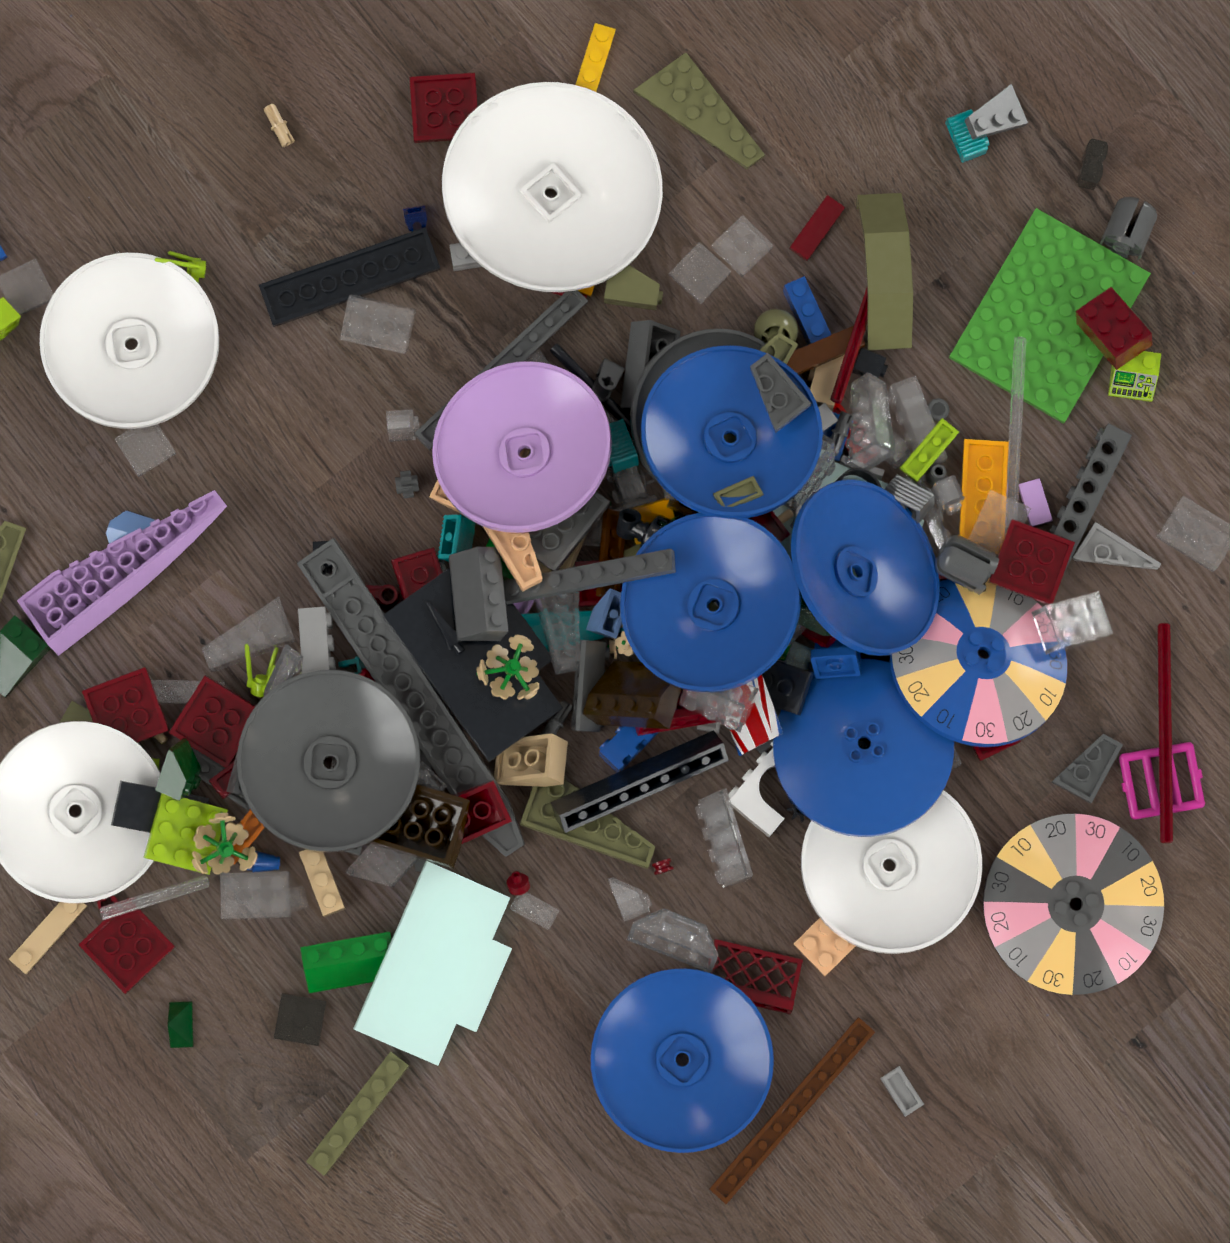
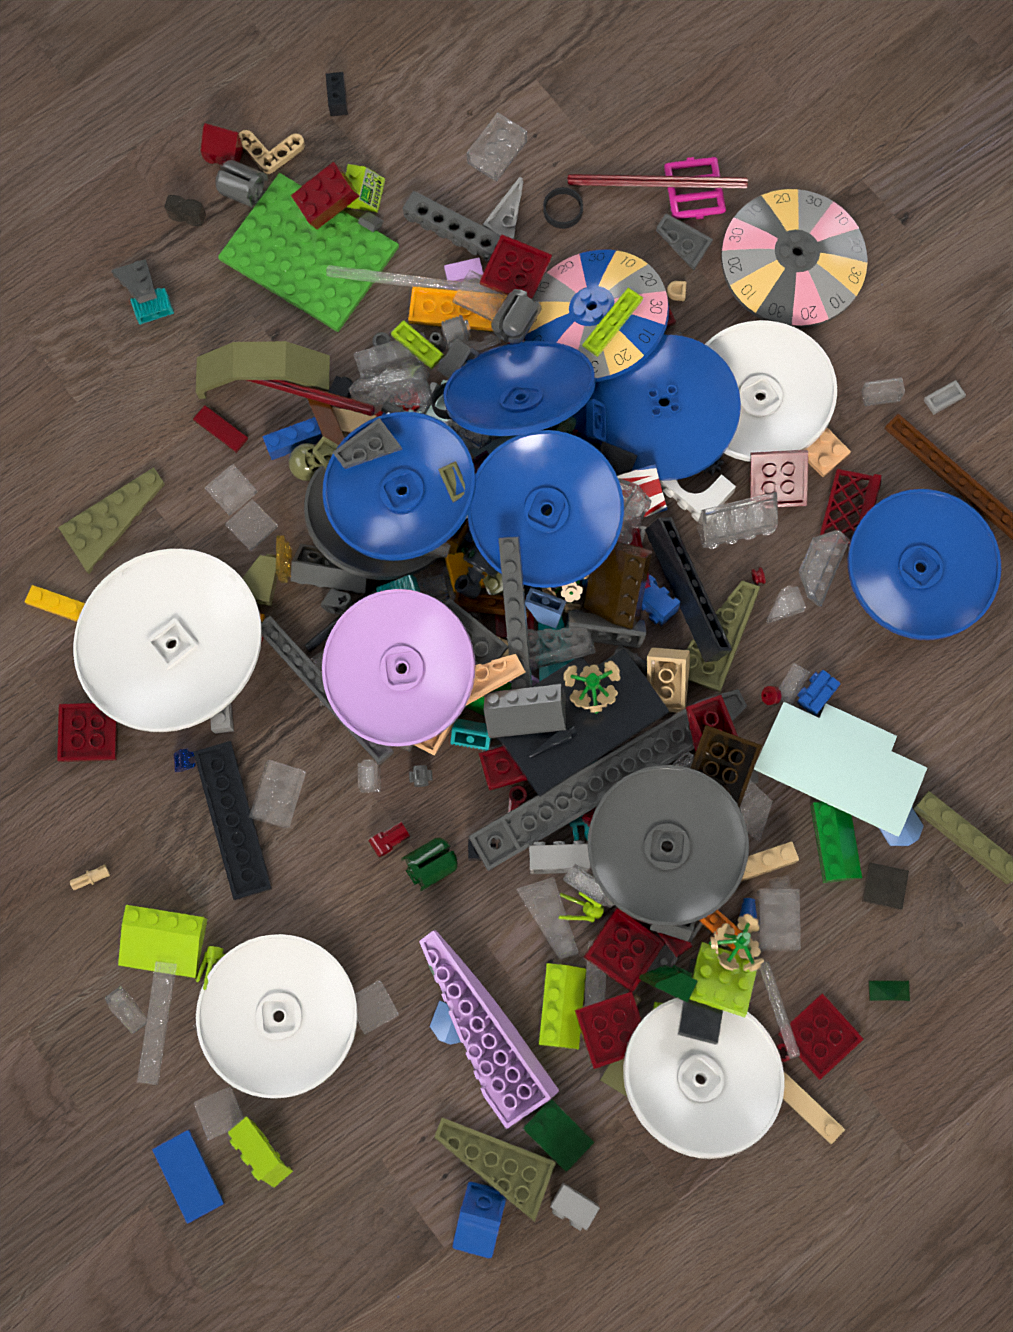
camera: 75 degrees left, 5 degrees down
(120, 212) = (156, 1023): none -> clear tile
(133, 177) = (126, 1009): none -> clear slope
(162, 653) = (562, 996): none -> lime slope
(211, 210) = (162, 937): none -> lime slope
(298, 507) = (423, 868): none -> dark green cylinder
(331, 450) = (385, 841): none -> dark red piece
(366, 1047) = (909, 834): none -> medium blue slope
(524, 938) = (818, 692): none -> blue brick
(662, 310) = (283, 554): none -> clear yellow plate
(781, 886) = (780, 473): none -> plate
(901, 1012) = (883, 391): none -> clear brick
(960, 677) = (612, 322): none -> lime tile
(1024, 762) = (677, 290): none -> tan tile
(1072, 623) = (567, 242): clear brick -> none
(1091, 387) = (371, 221): none -> dark grey tile
(1147, 615) = (562, 190): none -> black tyre
(1172, 256) = (267, 156): none -> tan beam
(1176, 200) = (220, 145): none -> dark red slope

